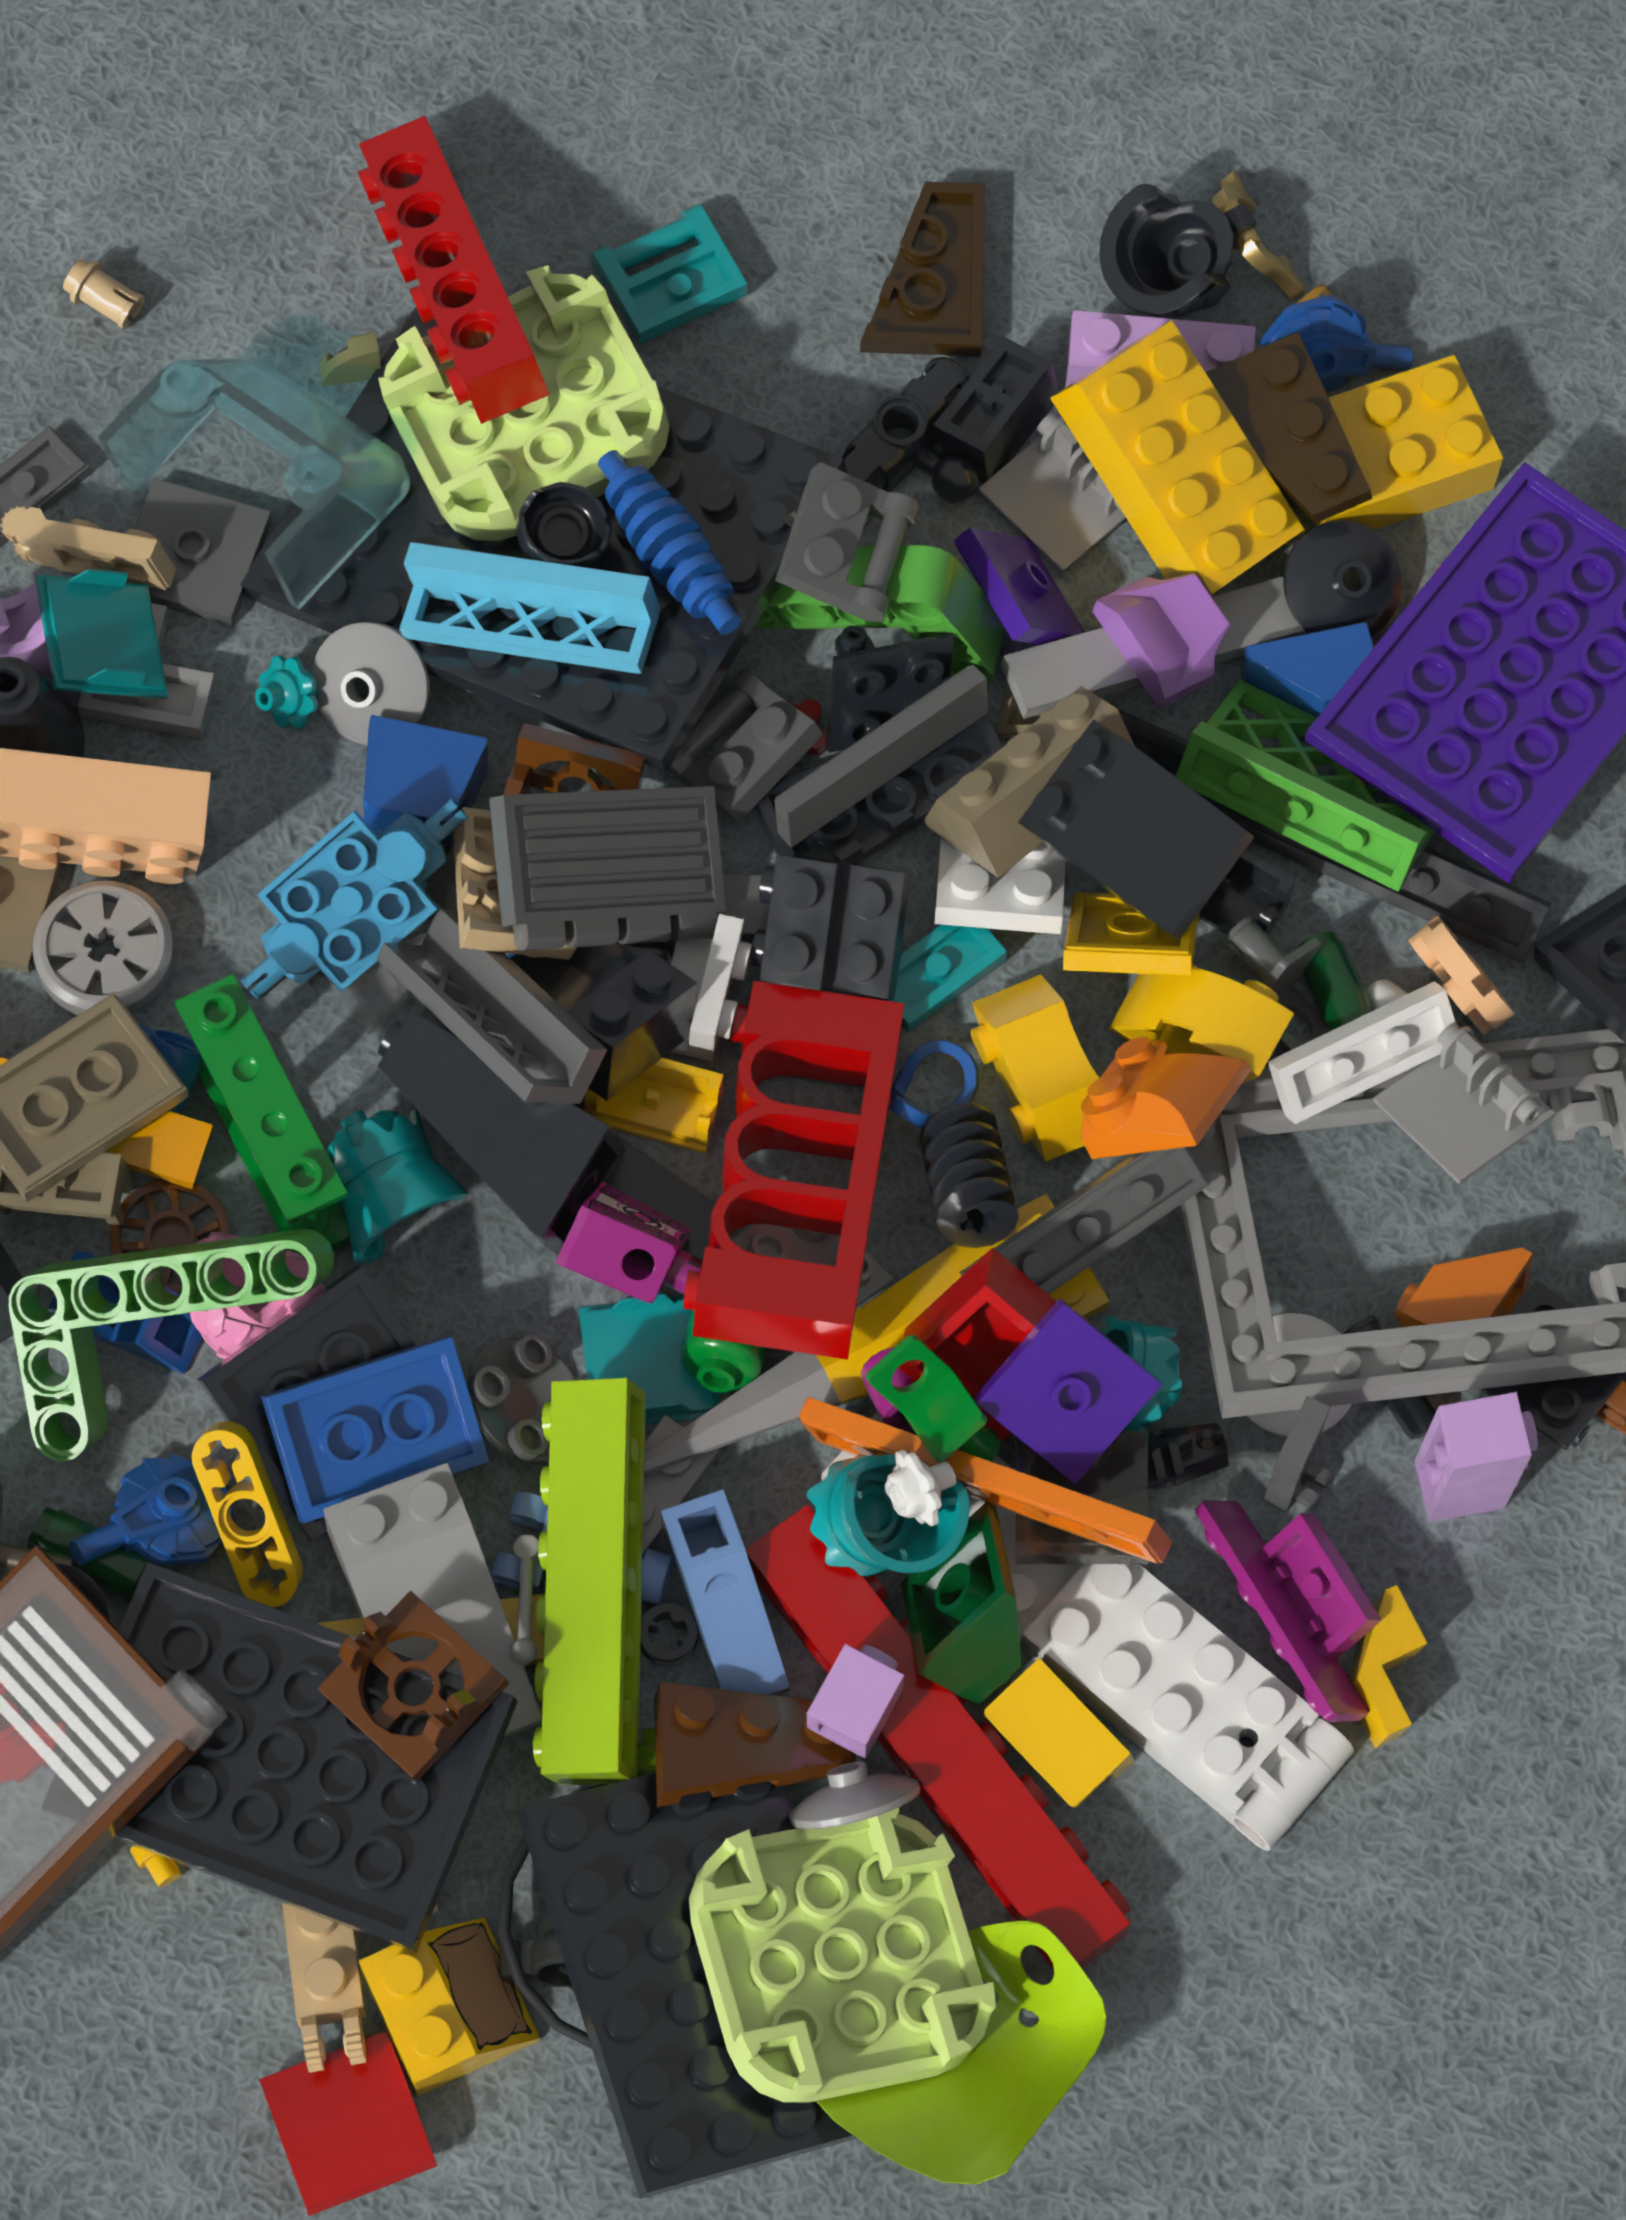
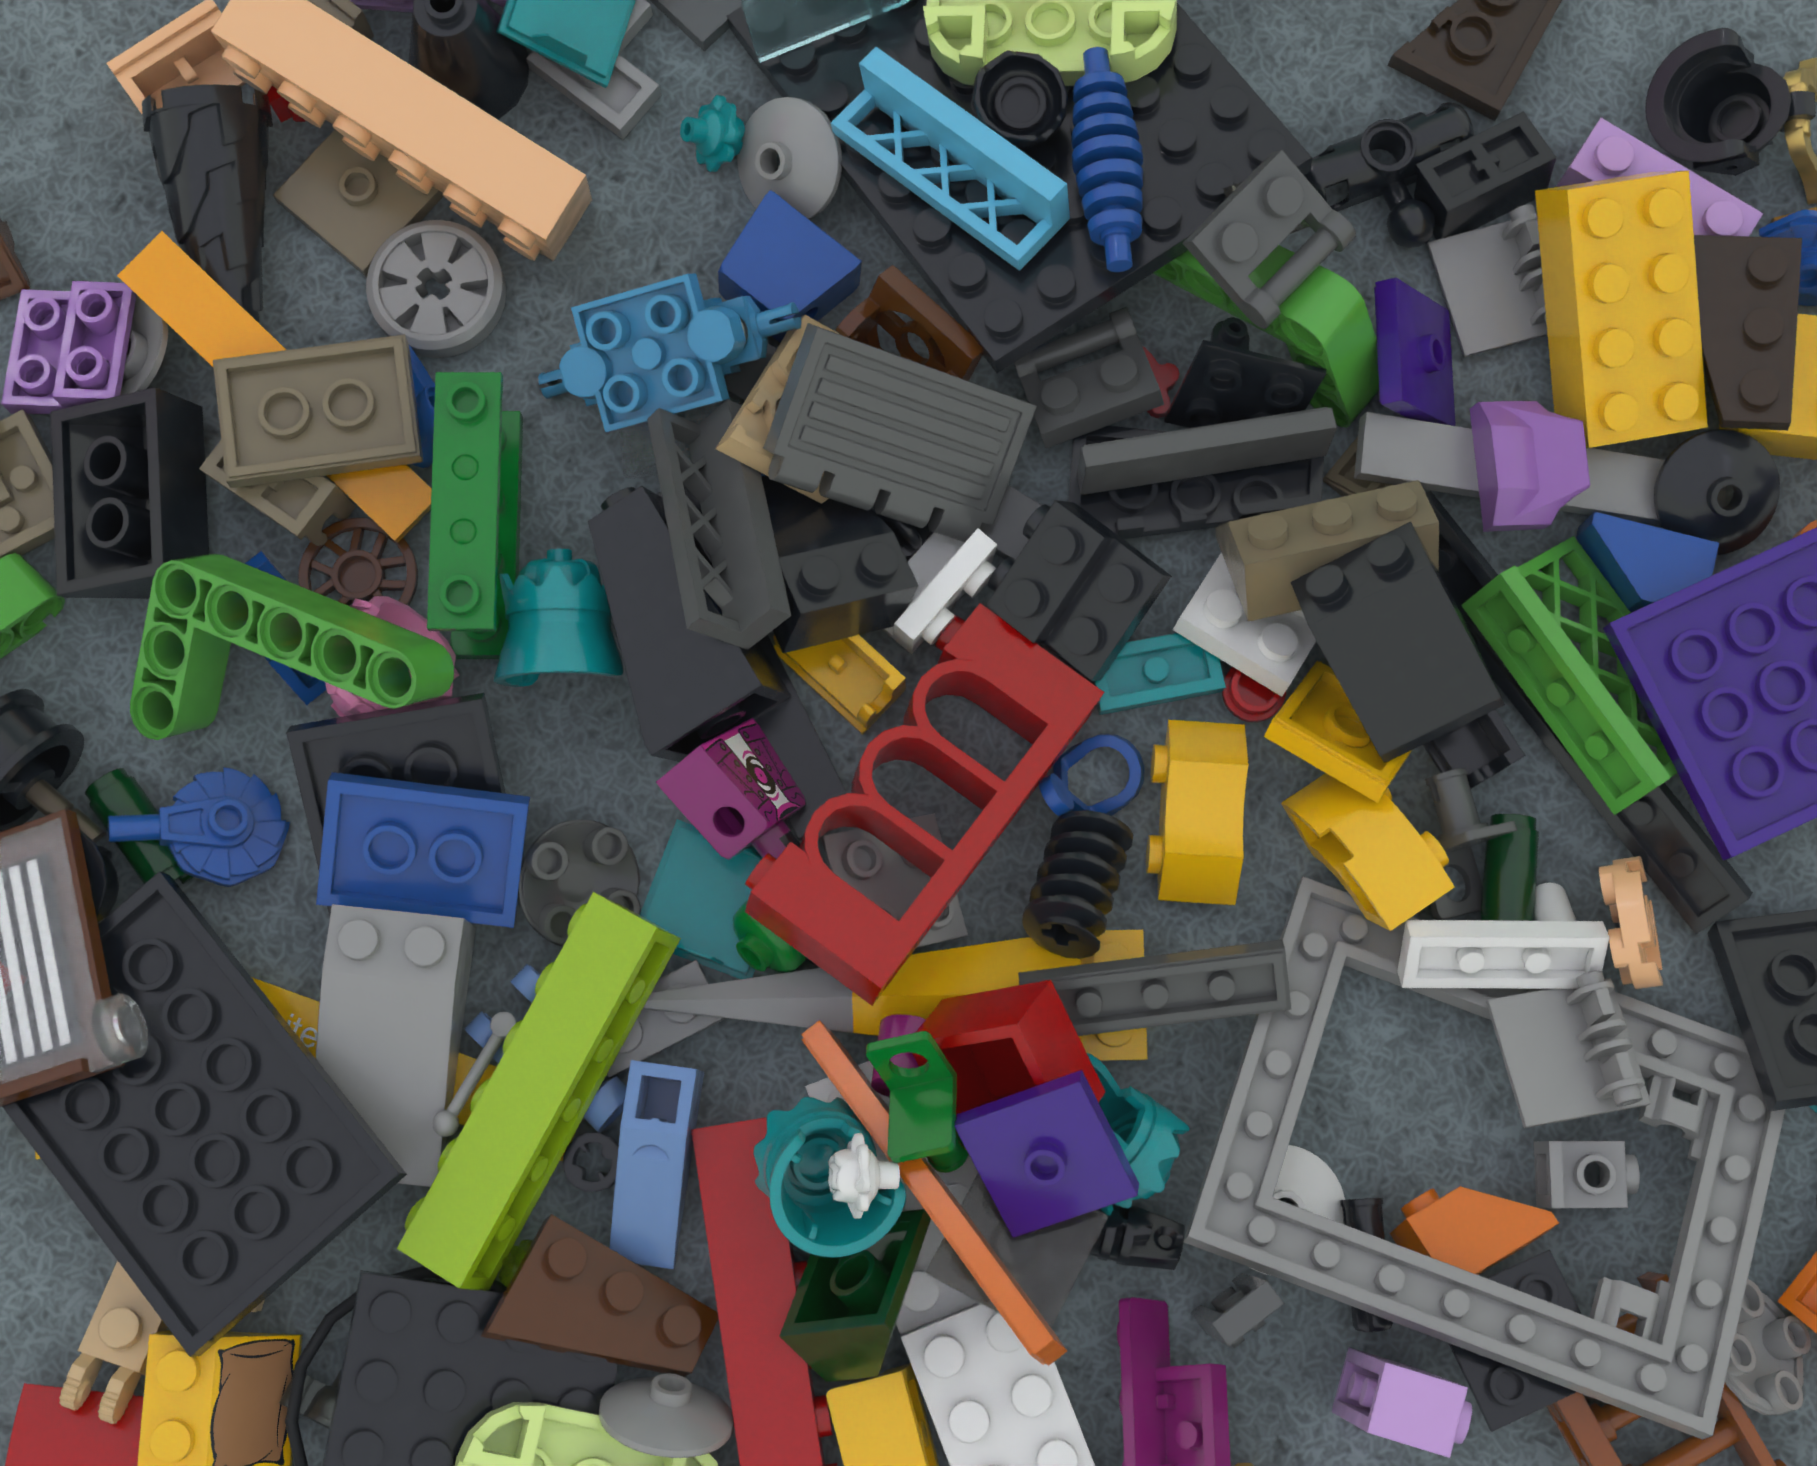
camera: 30 degrees right, 10 degrees up
(215, 1474) = (294, 845): yellow beam -> none
(446, 1720) = (252, 1093): reddish brown piece -> none
(856, 1698) = (710, 1331): lavender brick -> none
(1032, 952) = (1248, 698): none -> red plate
(1156, 1099) = (1284, 907): orange slope -> none
(1523, 1225) = (1562, 1180): none -> light grey brick

